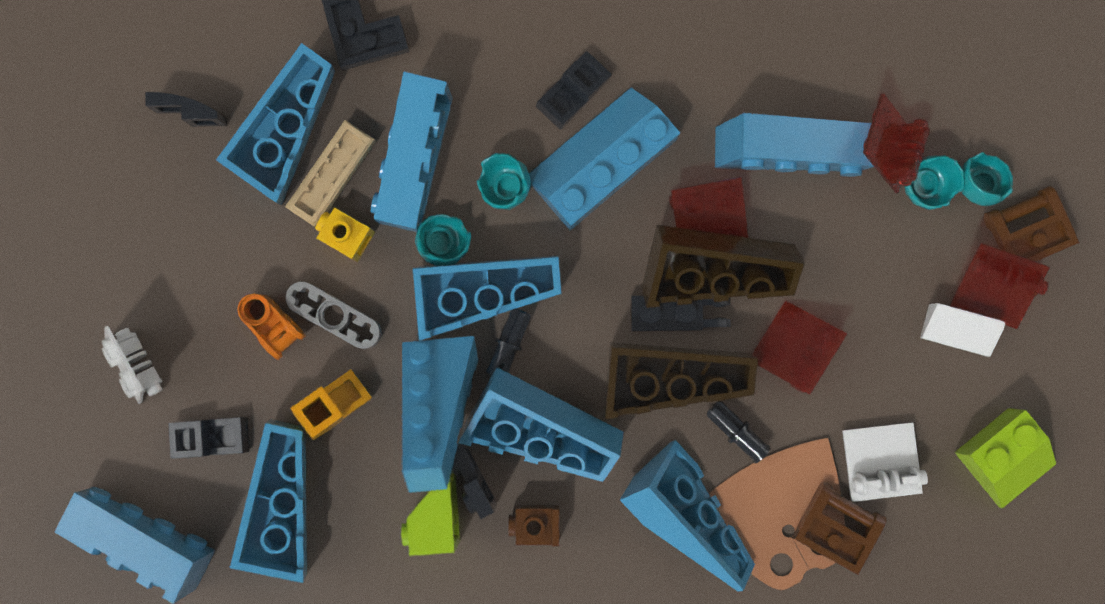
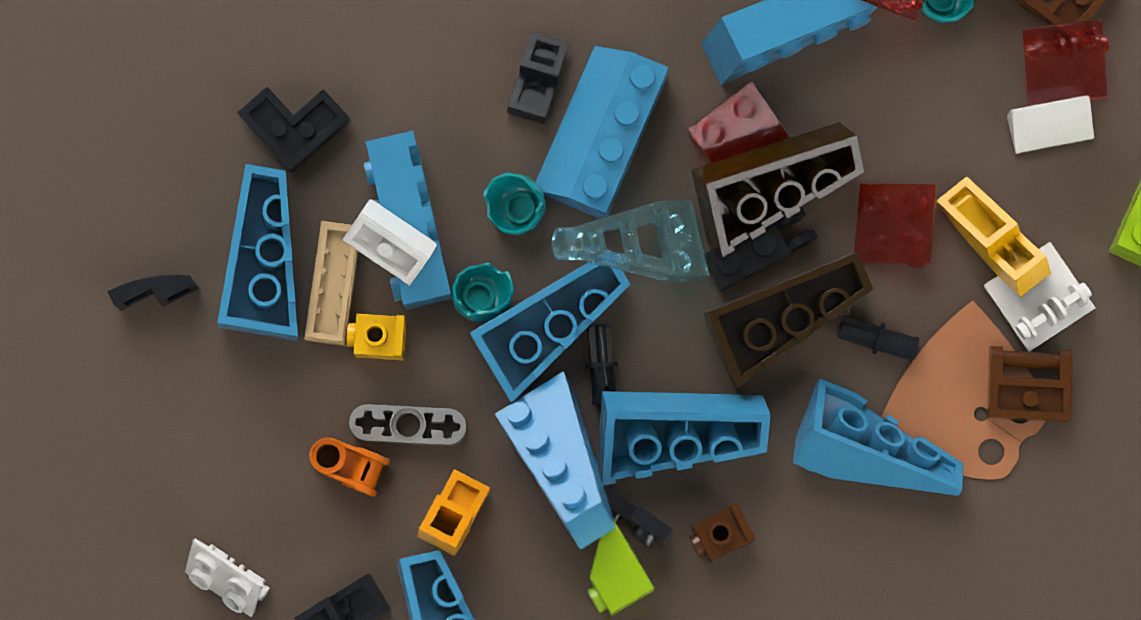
camera: 20 degrees left, 5 degrees down
(385, 162) = (390, 242): none -> white slope
(619, 270) = (677, 236): none -> clear light blue plate
(872, 397) = (994, 236): none -> yellow slope

